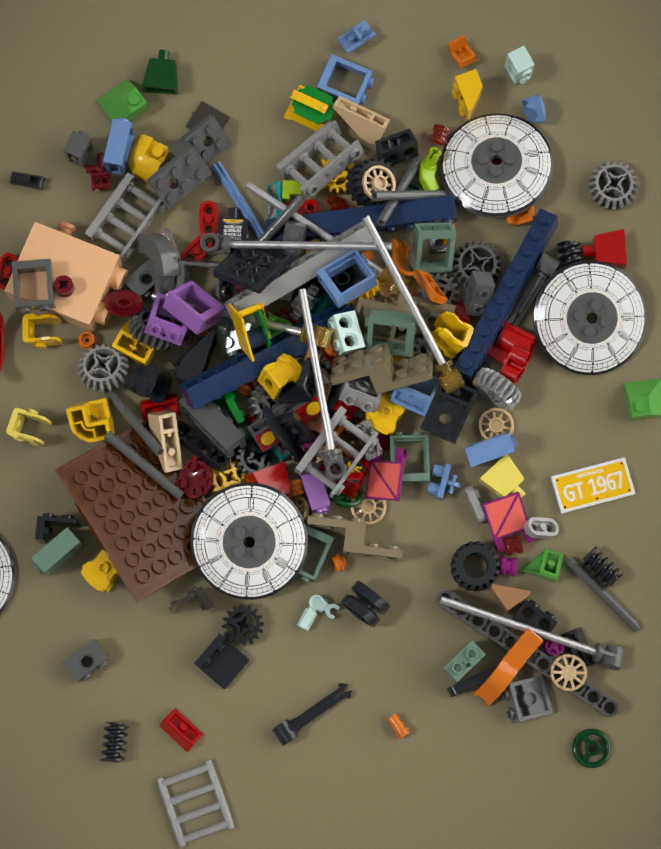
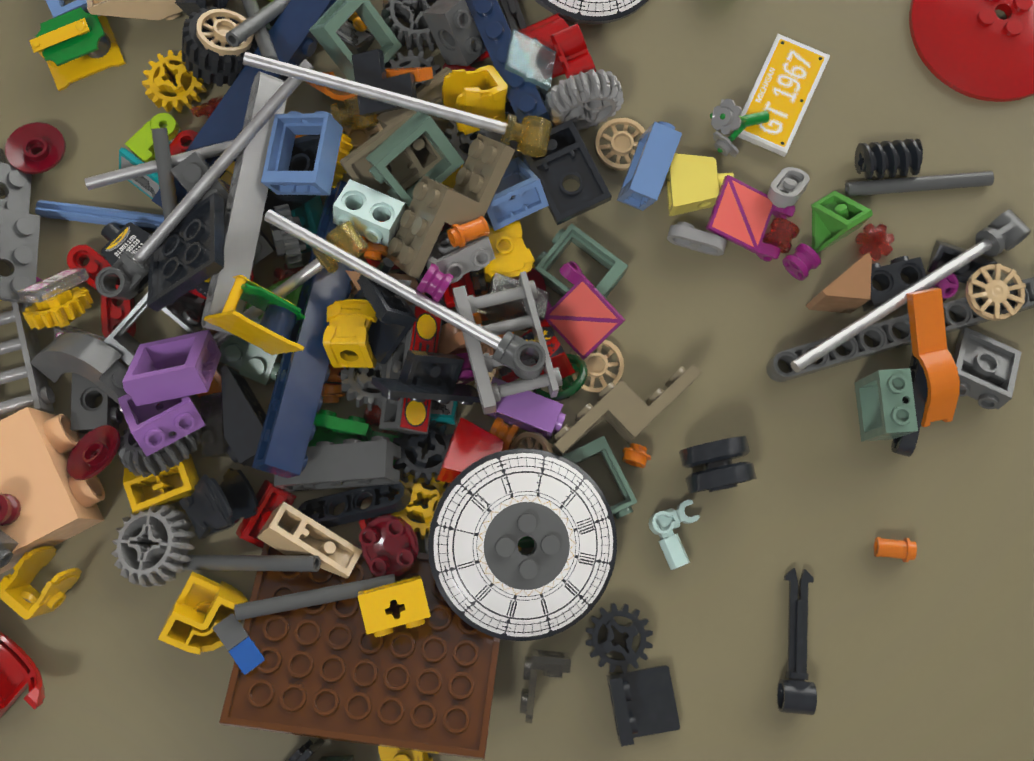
camera: 45 degrees left, 0 degrees up
(16, 422) = (136, 723): light yellow piece -> none
(87, 335) = (96, 535): orange plate -> none
(94, 447) = (238, 644): none -> sticker
(165, 494) = (377, 599): none -> yellow brick
(175, 222) = (58, 309): none -> yellow gear
(185, 211) = (53, 285): none -> clear tile
(247, 129) = (30, 139): none -> dark red dish
(310, 148) = (119, 81): light grey fence -> none
(335, 395) = (435, 282): none -> magenta wheel
(373, 389) = (469, 231): none -> orange pin
(413, 279) = (370, 70): none -> black tile
(438, 489) = (645, 264): medium blue hips -> none
(483, 551) = (786, 279): black tyre -> none
(491, 345) = (530, 60): none -> clear light blue piece
(545, 468) = (728, 118): none -> light grey plant
(549, 598) = (875, 241): none -> clear red plant

